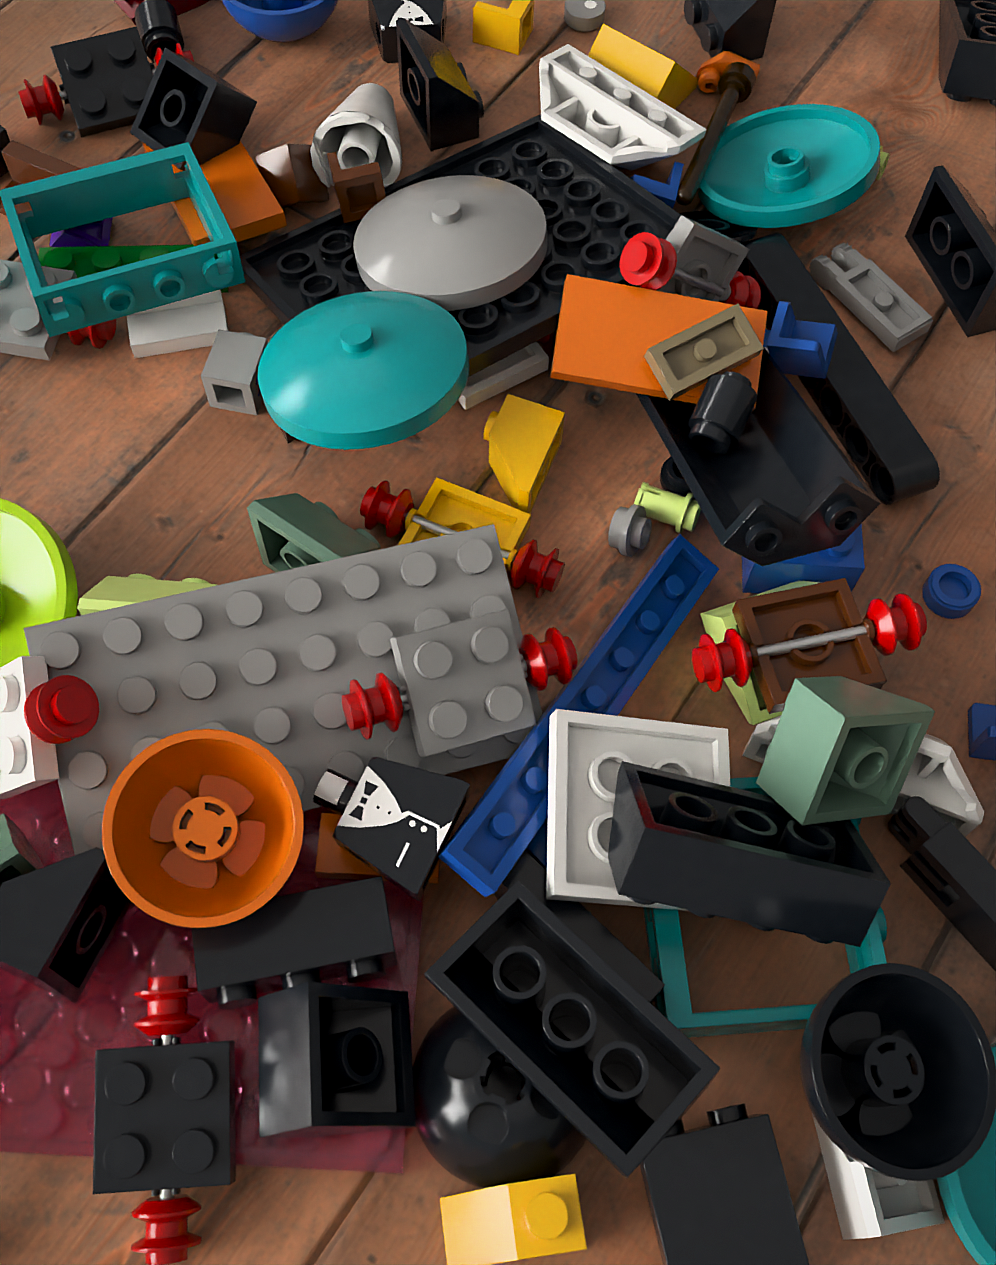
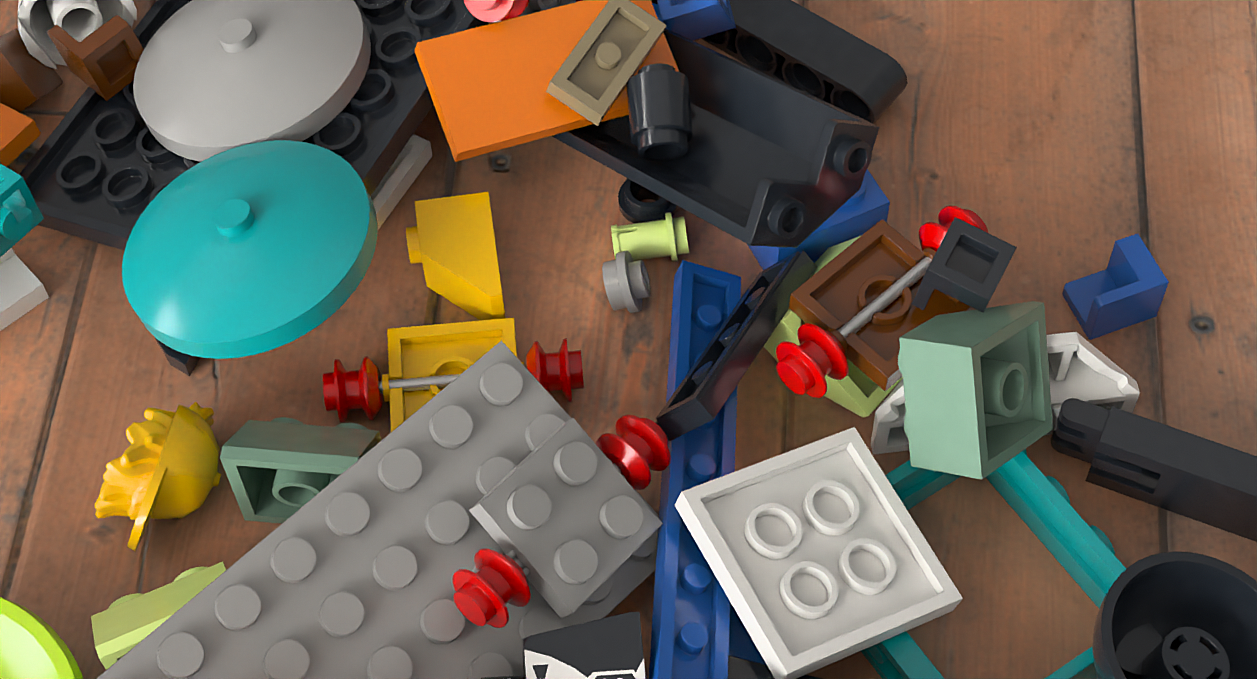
camera: 25 degrees left, 5 degrees down
(217, 496) = (163, 470): none -> yellow hair
(232, 372) = (87, 324): light grey brick -> none
(672, 619) = (734, 346): none -> black tile
(740, 858) = (940, 542): black slope -> none
(885, 649) = (966, 266): none -> black panel
(951, 591) = (980, 184): blue tile -> none

